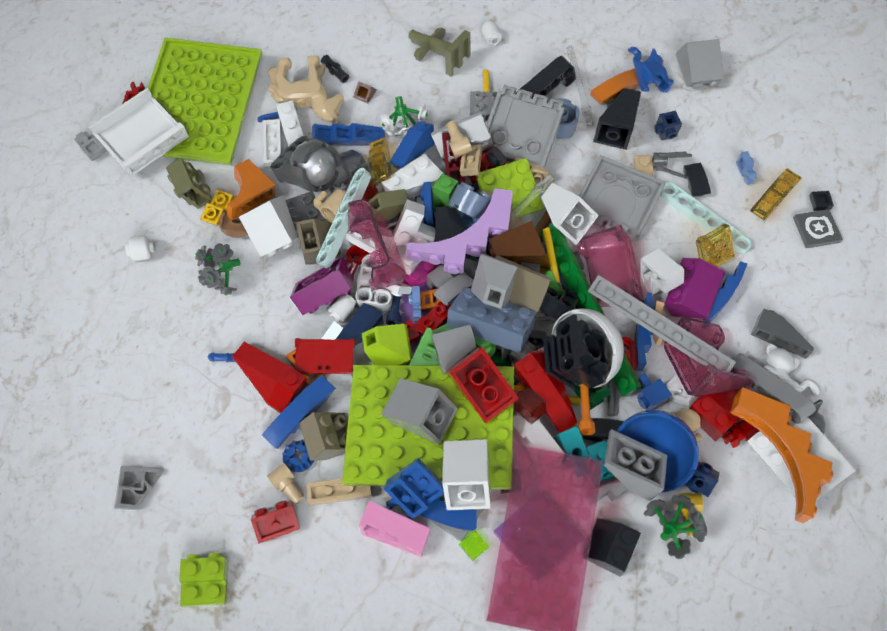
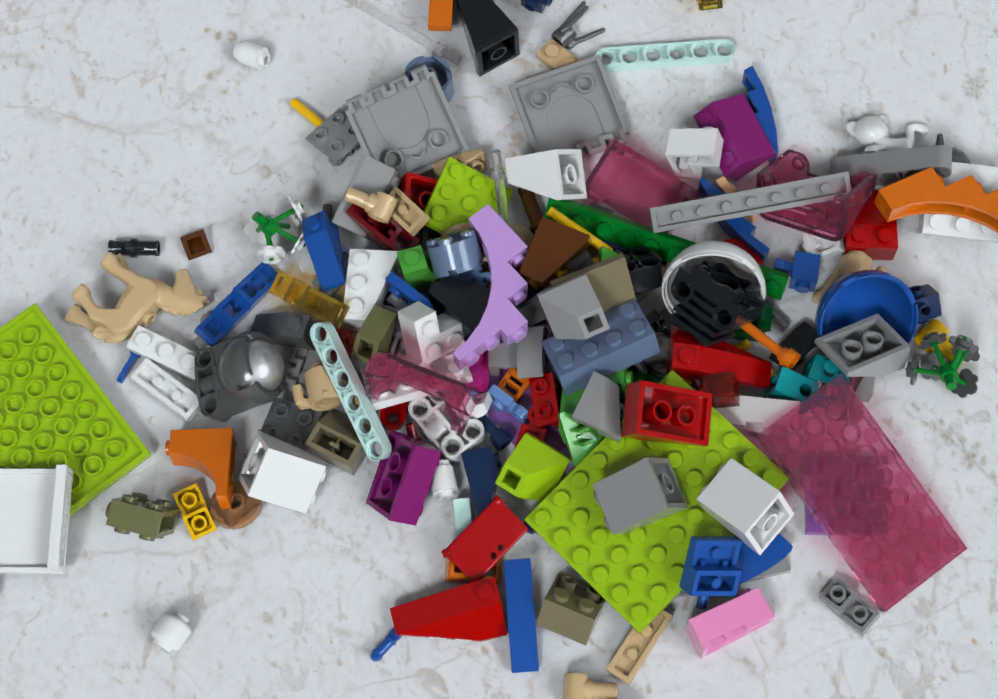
camera: 40 degrees left, 5 degrees up
(209, 276) = (282, 552): dark grey plant -> none
(293, 463) = (554, 658): blue gear -> none
(453, 52) = (236, 114): olive piece -> none
(471, 595) = (848, 606): none -> light grey slope
(473, 545) = (804, 563): clear neon green tile -> none
(496, 157) = (422, 184): black plate -> none
(551, 76) = (374, 35): black beam -> none
(612, 545) = (916, 437): black slope -> none
(697, 179) = (618, 22): black slope -> none
(712, 244) = (708, 77): clear yellow plate -> none
(741, 431) = (906, 229): red plate -> none
(778, 331) = (841, 105): dark grey slope -> none

